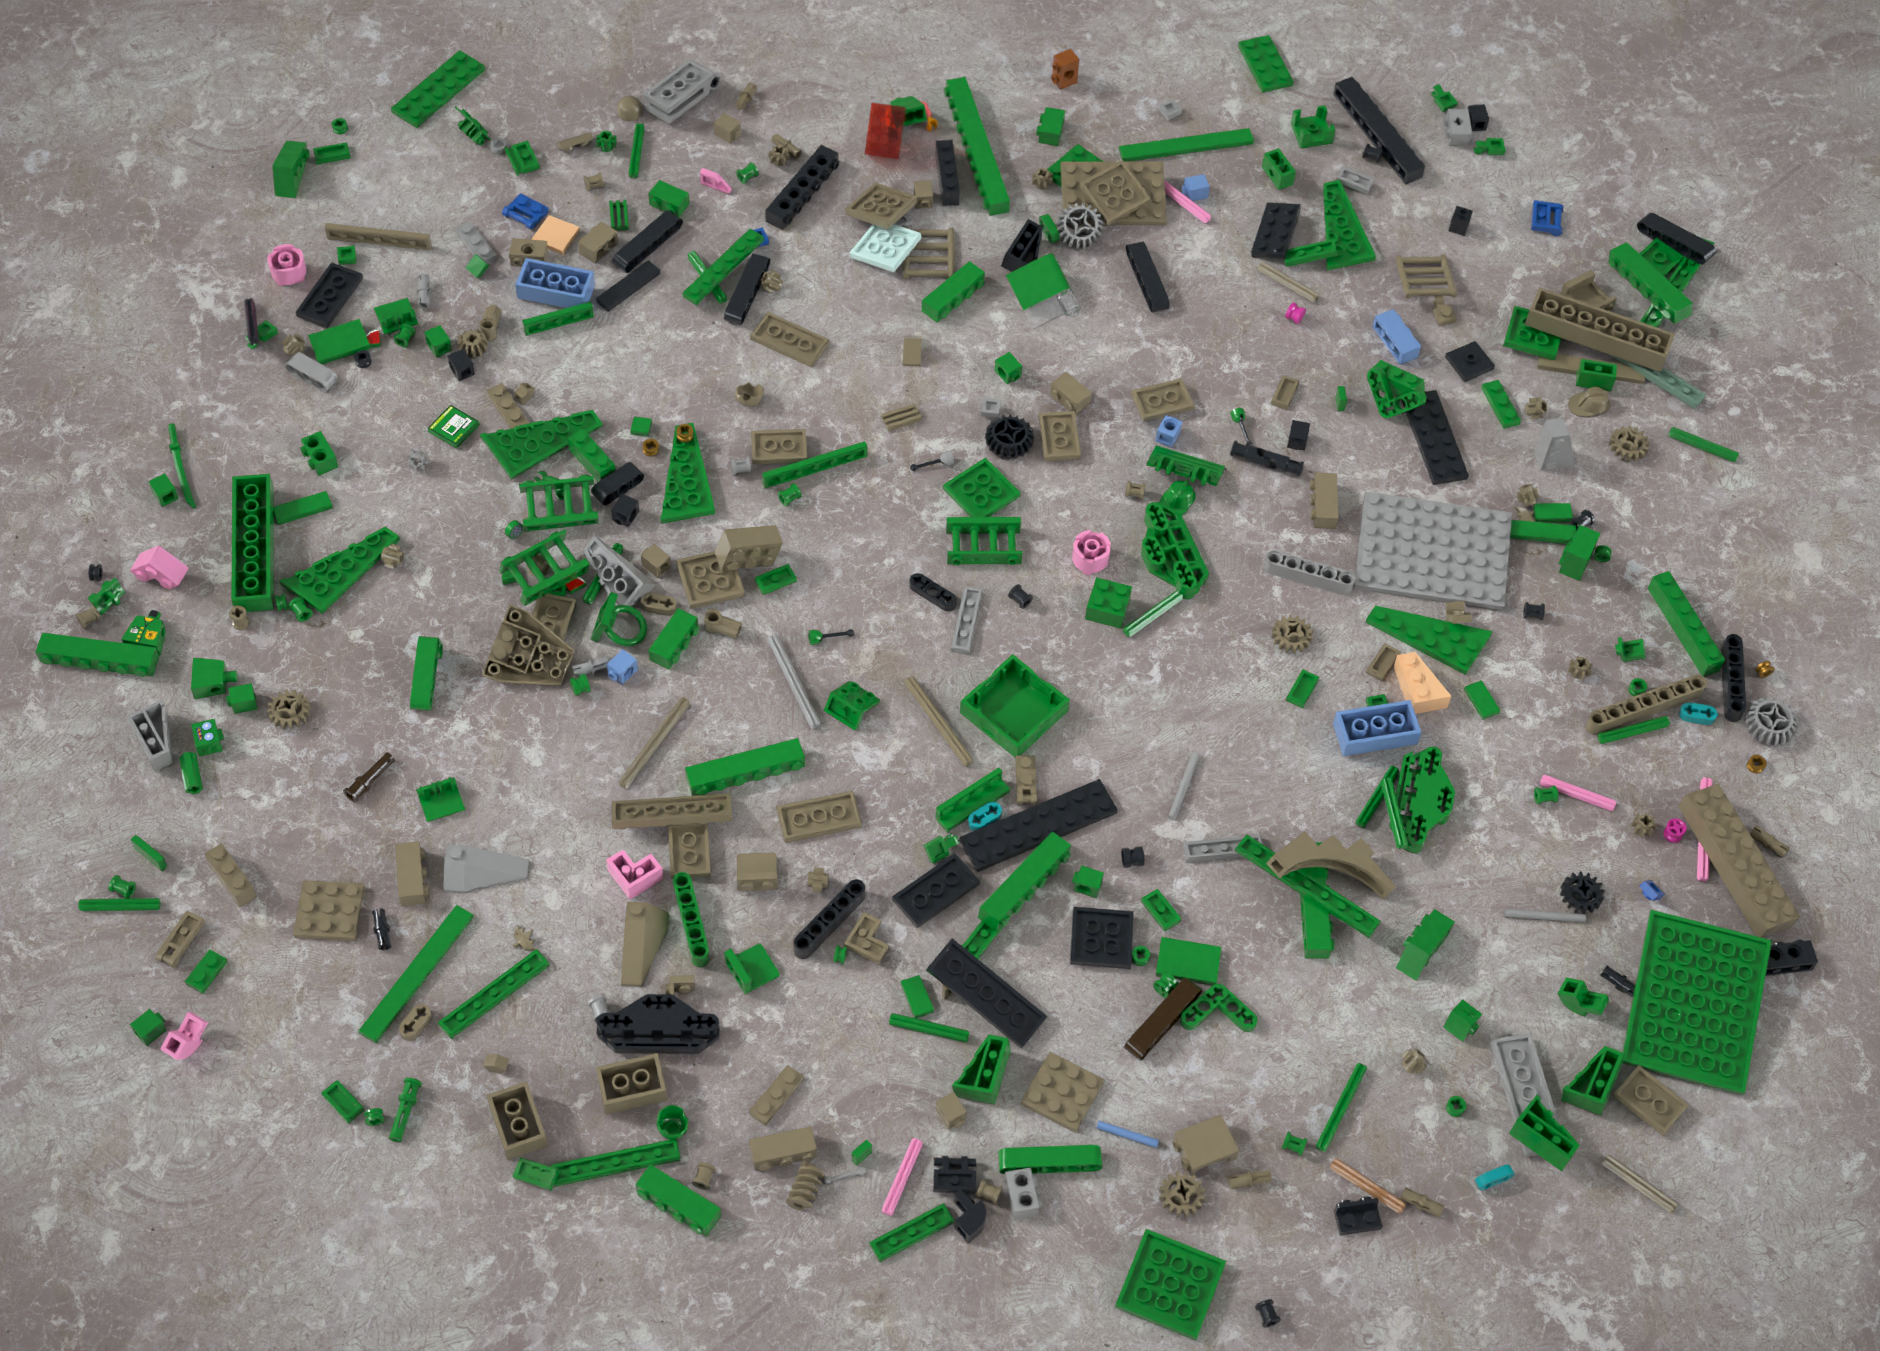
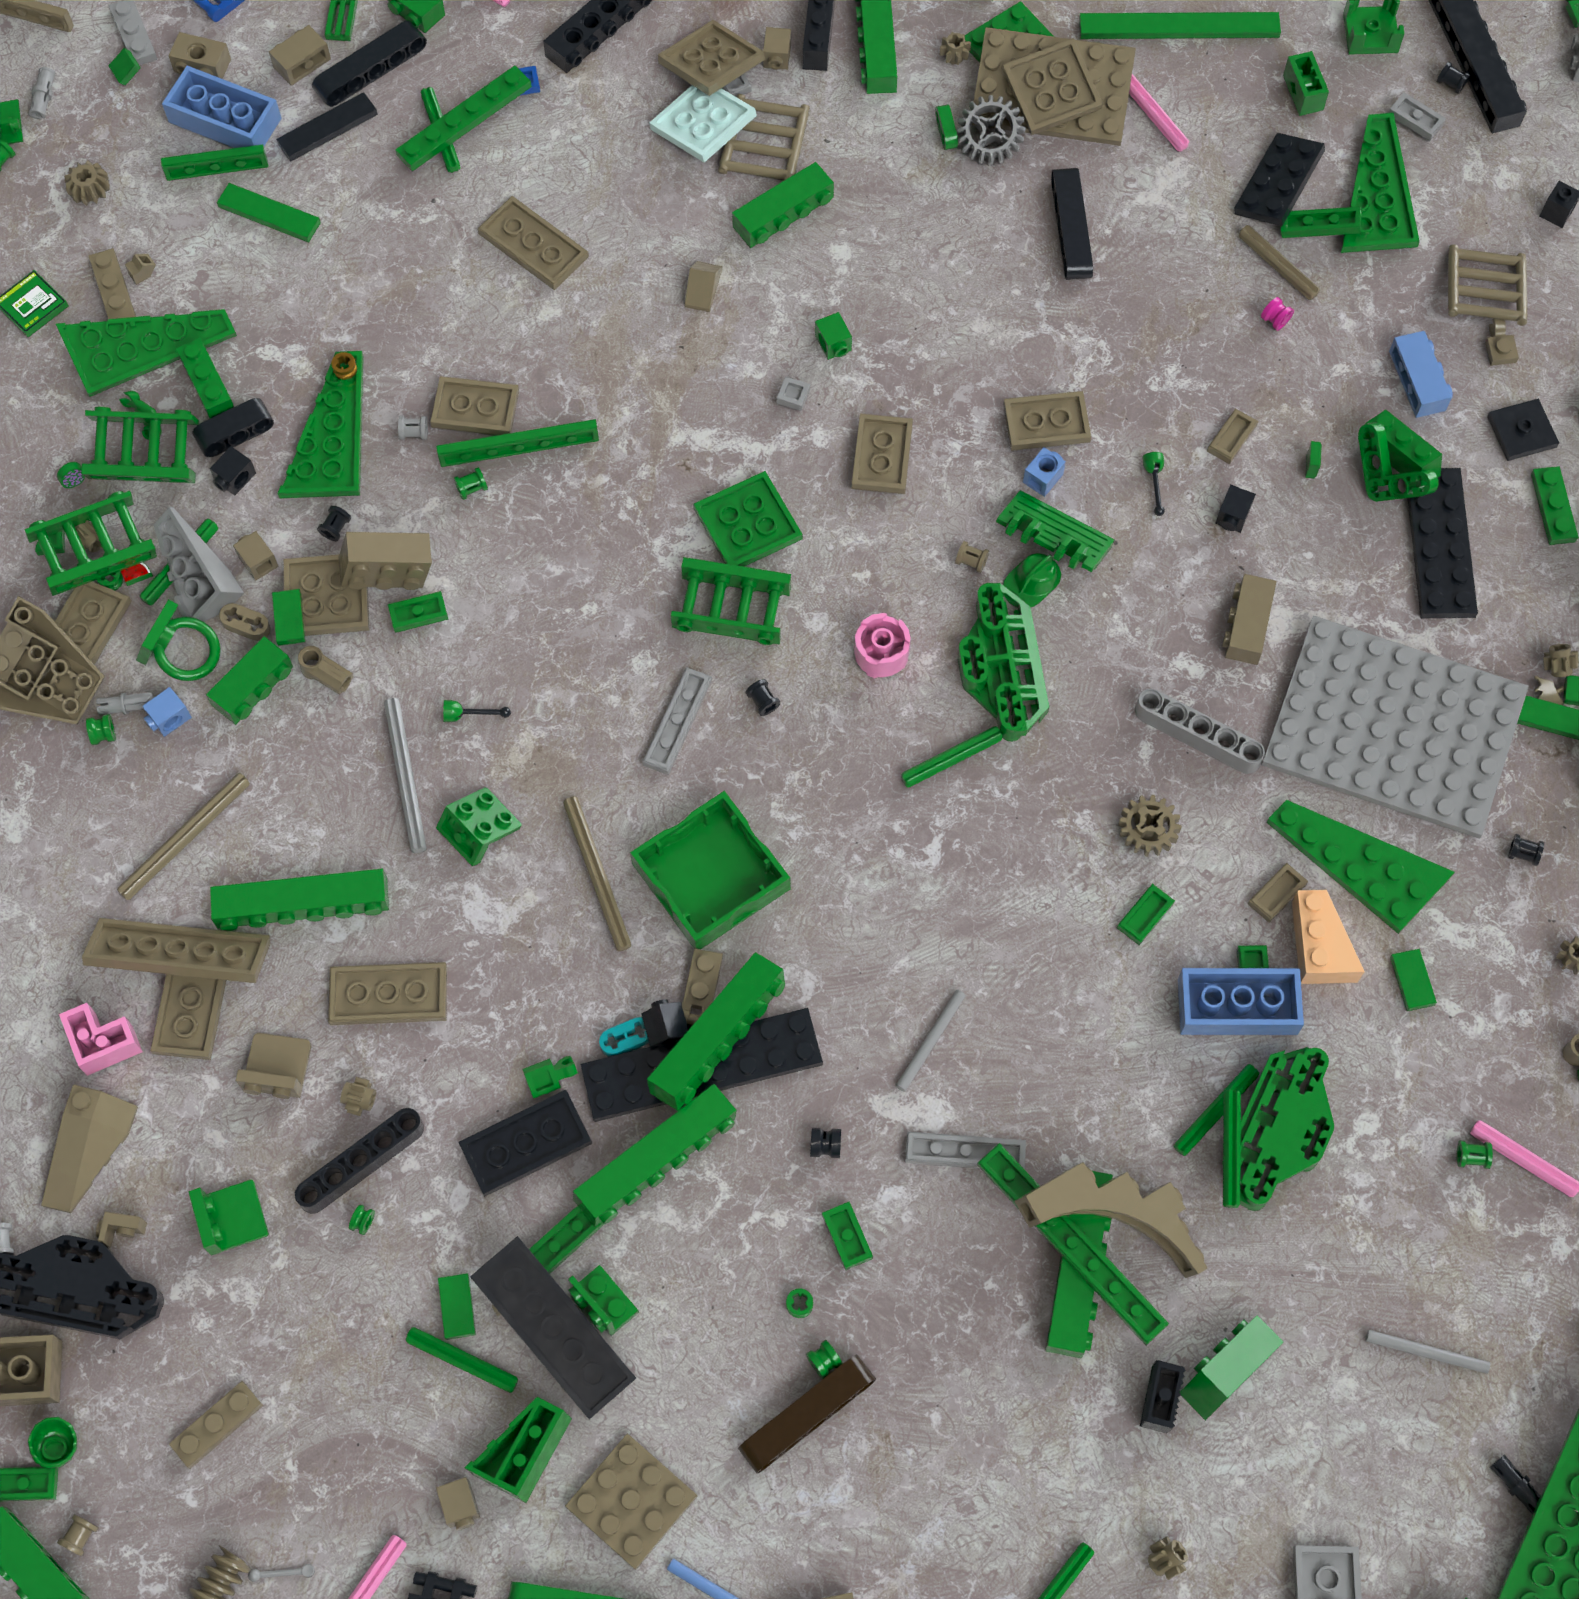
camera: 15 degrees right, 10 degrees up
(438, 341) = (41, 171): green brick -> none
(461, 365) = (62, 212): black brick -> none
(490, 322) = (120, 154): dark tan piece -> none
(557, 233) = (247, 34): light nougat tile -> none
(603, 345) = (268, 212): none -> green tile
(641, 426) = (290, 344): green tile -> none
(647, 443) = (293, 371): pearl gold bush -> none
(690, 594) = (288, 617): none -> green tile
(693, 927) = (168, 1137): green beam -> none
(697, 537) = (334, 523): none -> black bush
(746, 289) = (490, 156): black beam -> none
(749, 395) = (451, 320): dark tan hair -> none
(771, 281) = (527, 151): dark tan gear -> none
(783, 1148) = (200, 1515): dark tan brick -> none
(861, 1152) = (312, 1543): green tile -> none
(862, 939) = (398, 1201): dark tan plate -> none
(900, 415) = (662, 383): dark tan tile -> none
(936, 599) = (636, 656): black beam -> none
(946, 459) = (708, 463): hinge -> none
(959, 807) = (609, 1009): green fence -> none
(1009, 436) = (822, 436): black gear -> none
(1009, 801) = (664, 1022): none -> black brick
(1013, 974) = (604, 1299): none -> green bracket
(1024, 247) = (898, 157): black wedge -> none
(1043, 291) = (912, 224): green door -> none
(1046, 799) = (716, 1032): none -> green brick
(1070, 393) = (912, 390): dark tan brick -> none
(1088, 881) = (750, 1170): green brick -> none
(1101, 937) = (748, 1264): black plate -> none
(1108, 602) = (888, 730): green brick -> none
(1189, 960) = (869, 1325): green tile -> none
(1196, 187) = (1176, 95): medium blue brick -> none
(1221, 1003) = (902, 1404): green beam -> none
(1255, 454) = (1184, 540): black piece -> none
(1387, 967) = (1162, 1396): none -> black brick
(1456, 612) = (1406, 834): dark tan bracket -> none
(1463, 1020) = (1258, 1508): green head -> none
(1579, 1000) = (1450, 1507): green brick -> none
(1582, 892) = (1506, 1328): black gear -> none

